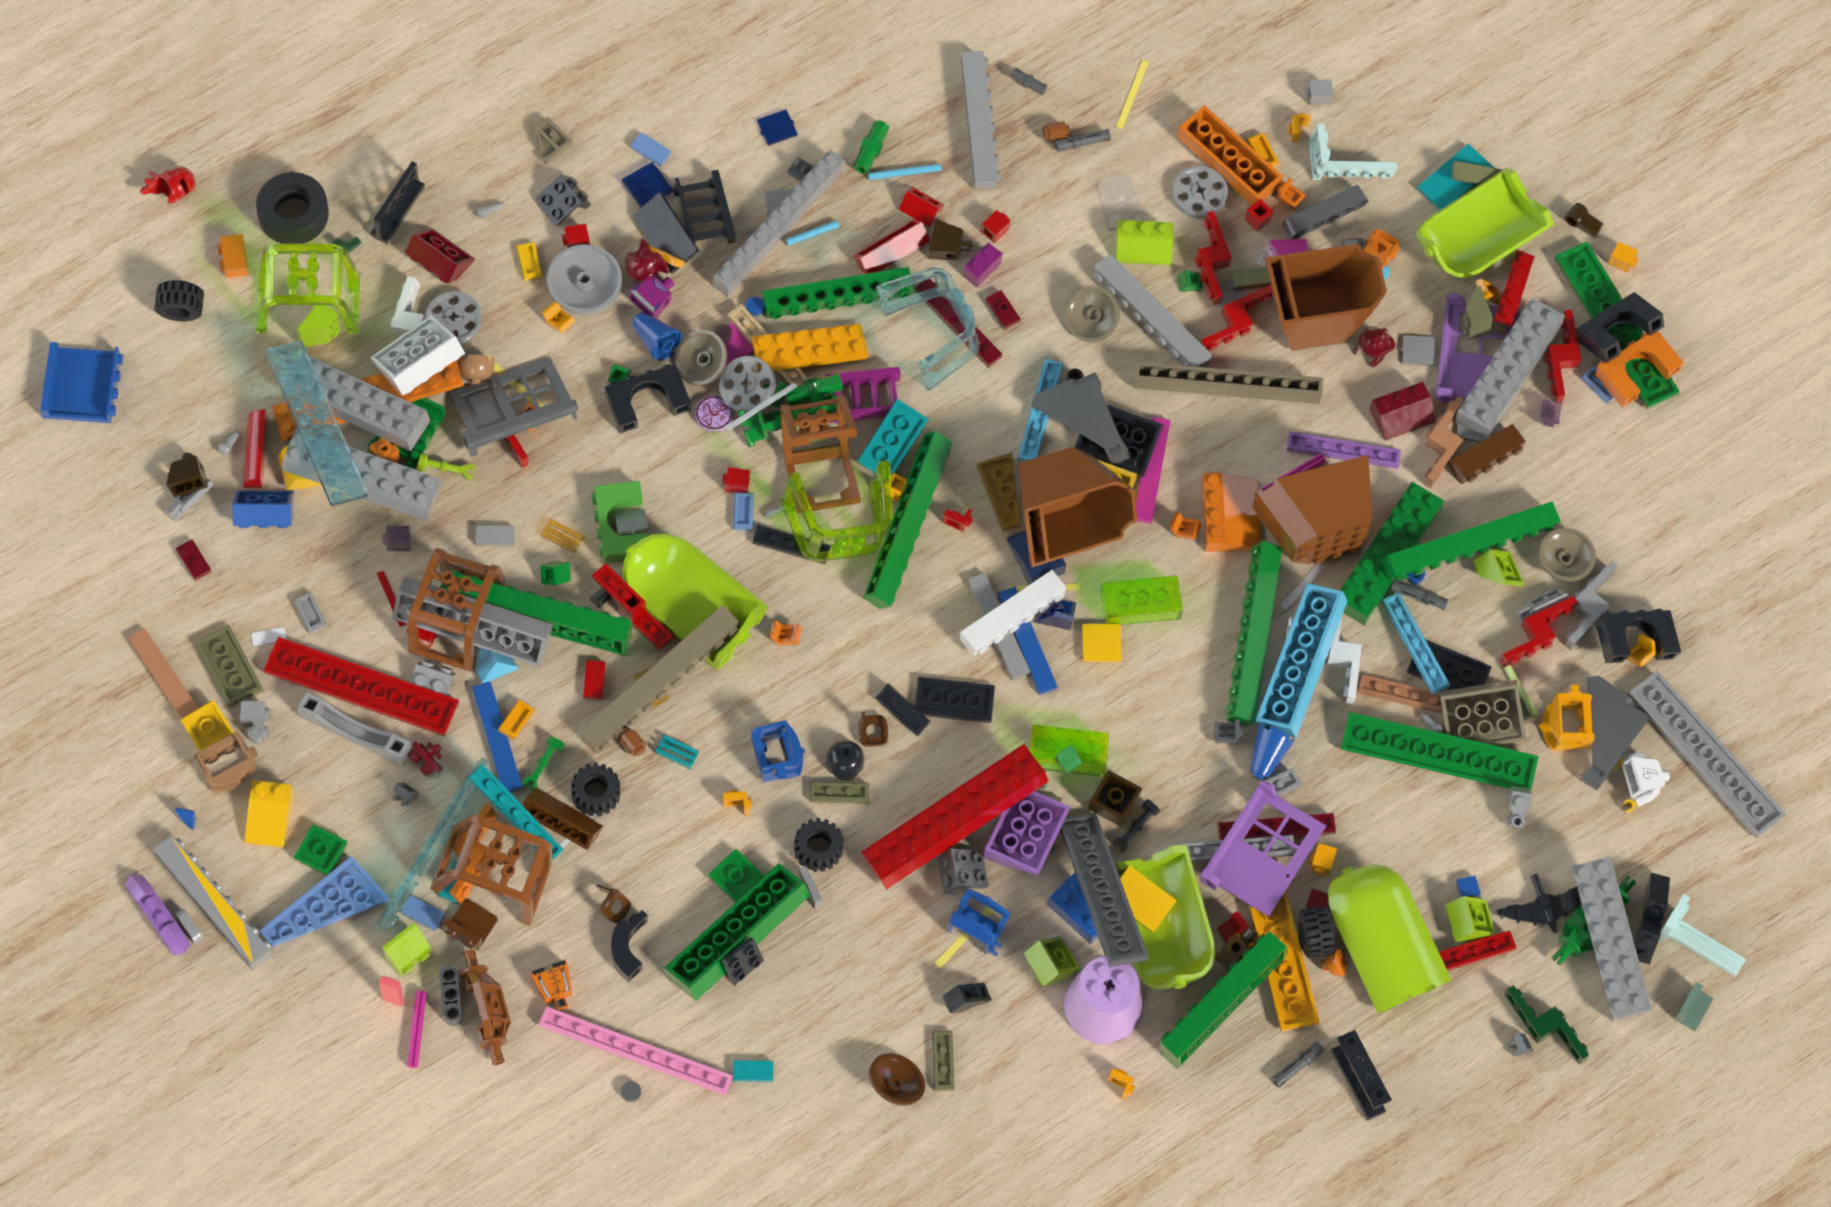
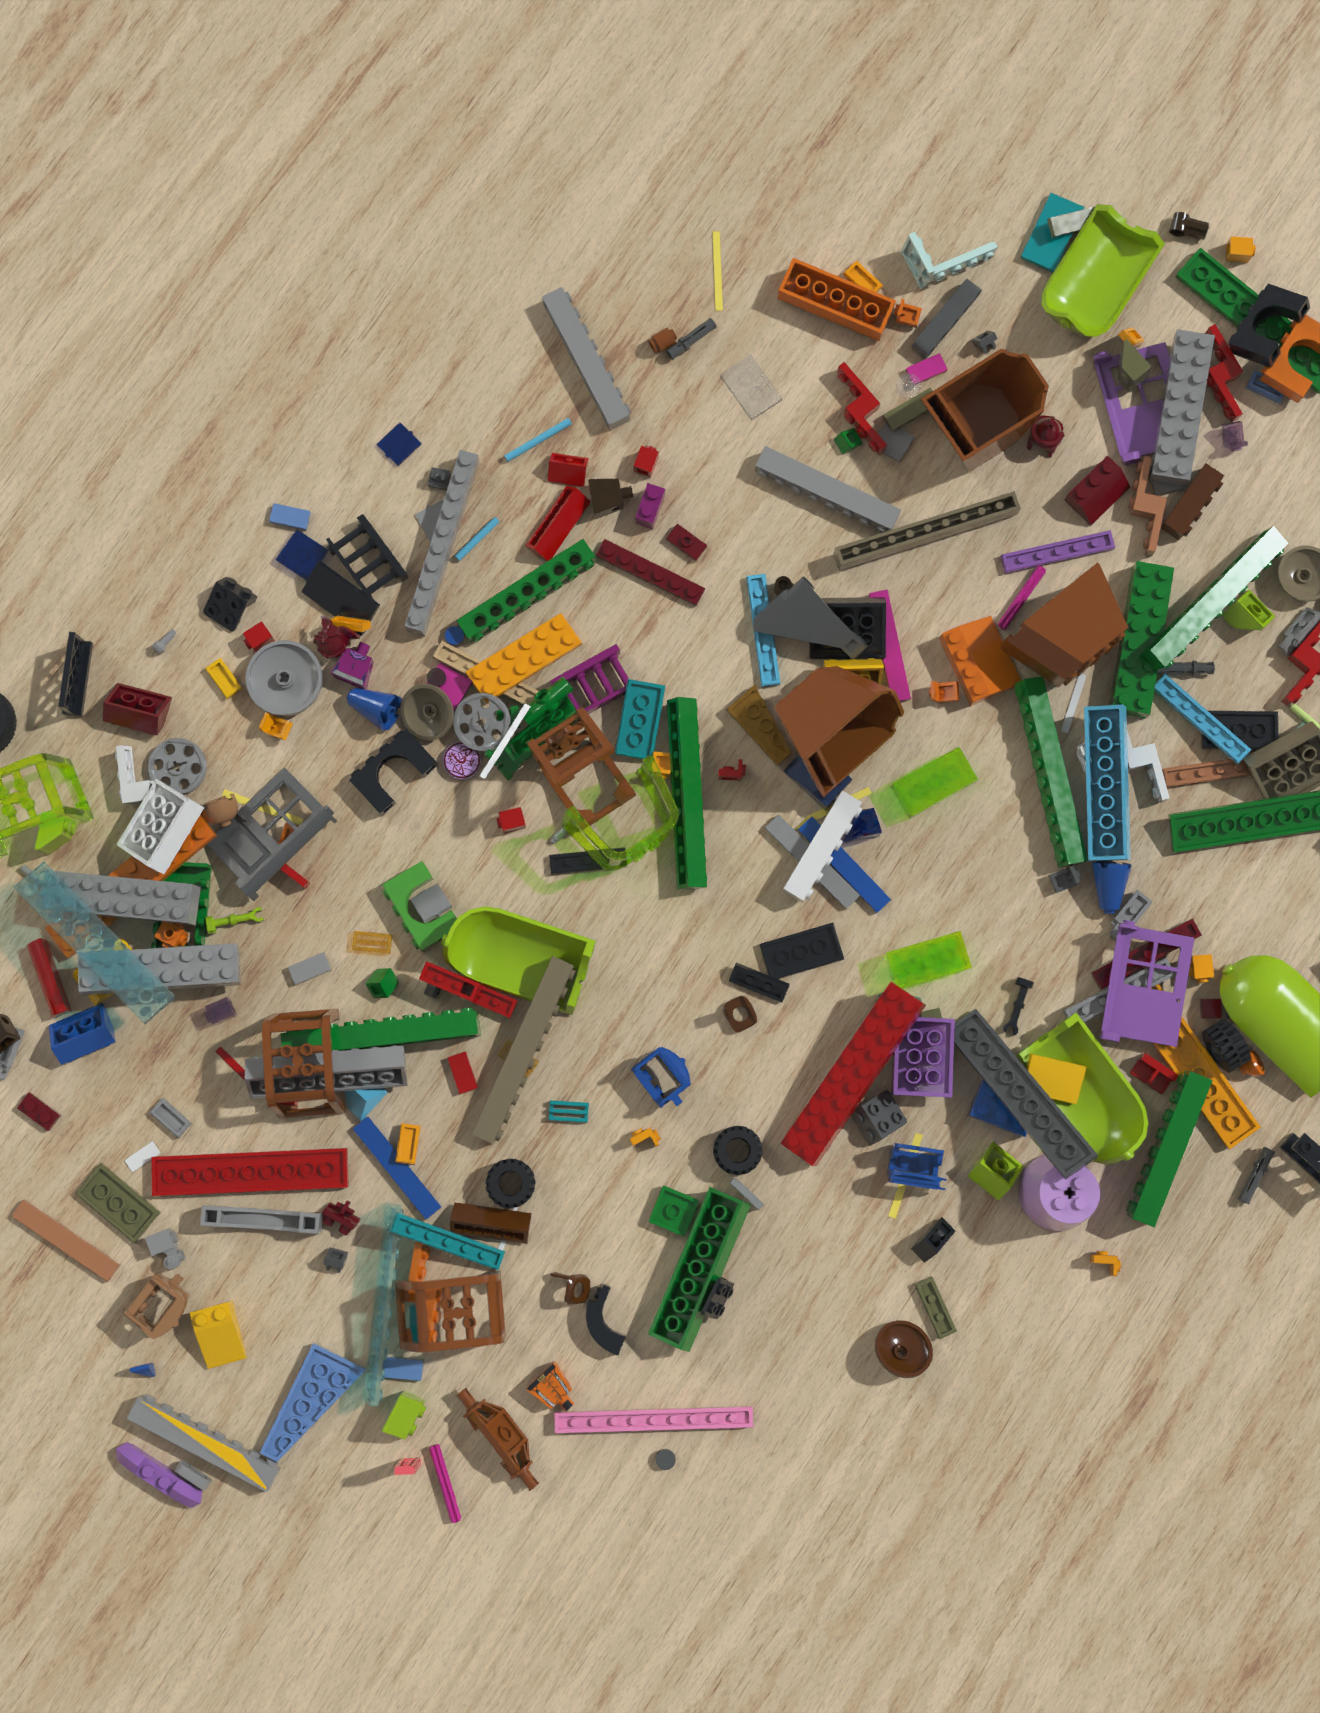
camera: 15 degrees left, 15 degrees up
(206, 725) = (123, 1272): yellow tile -> none
(225, 447) = (20, 987): light grey piece -> none
(320, 850) = (282, 1349): green plate -> none
(349, 246) = (46, 736): clear green arm -> none
(433, 677) = (312, 1134): light grey bracket -> none
(450, 986) = (462, 1449): dark grey beam -> none
(470, 925) = (451, 1367): reddish brown bracket -> none
(551, 139) = (191, 546): dark tan wing -> none
(553, 744) = (452, 1153): green piece -> none
(618, 373) = (356, 758): green slope -> none
(632, 742) = (524, 1120): dark orange brick -> none
(743, 511) = (530, 846): medium blue tile -> none
(752, 1071) = (768, 1391): teal tile -> none
(785, 633) = (619, 954): orange bracket -> none
(839, 792) = (734, 1087): olive tile -> none
(845, 759) = (726, 1053): black cylinder -> none
(871, 147) = (496, 428): green piece -> none
(944, 288) = (610, 554): clear light blue windscreen -> none
(1029, 81) = (616, 298): dark grey pin -> none
(1068, 759) = (935, 975): green slope -> none
(1080, 314) = (764, 523): dark tan dish -> none
(1101, 642) = (913, 838): yellow tile -> none
(1115, 798) = (989, 990): dark brown brick -> none
(1144, 242) = (791, 420): lime slope -> none
(1204, 186) = (822, 337): light grey wedge -> none
(1236, 947) = (1161, 1094): dark brown torso -> none
(1237, 318) = (909, 461): red bracket -> none
(1259, 215) = (887, 348): red brick -> none
(1297, 121) = (884, 245): light orange bracket -> none
(1319, 92) = (892, 197): light grey brick -> none
(1383, 246) = (1012, 335): orange piece -> none
(1418, 350) = (1086, 422): light grey piece -> none
(1436, 727) = (1252, 793): light grey piece -> none
(1514, 288) = (1153, 324): red bracket -> none

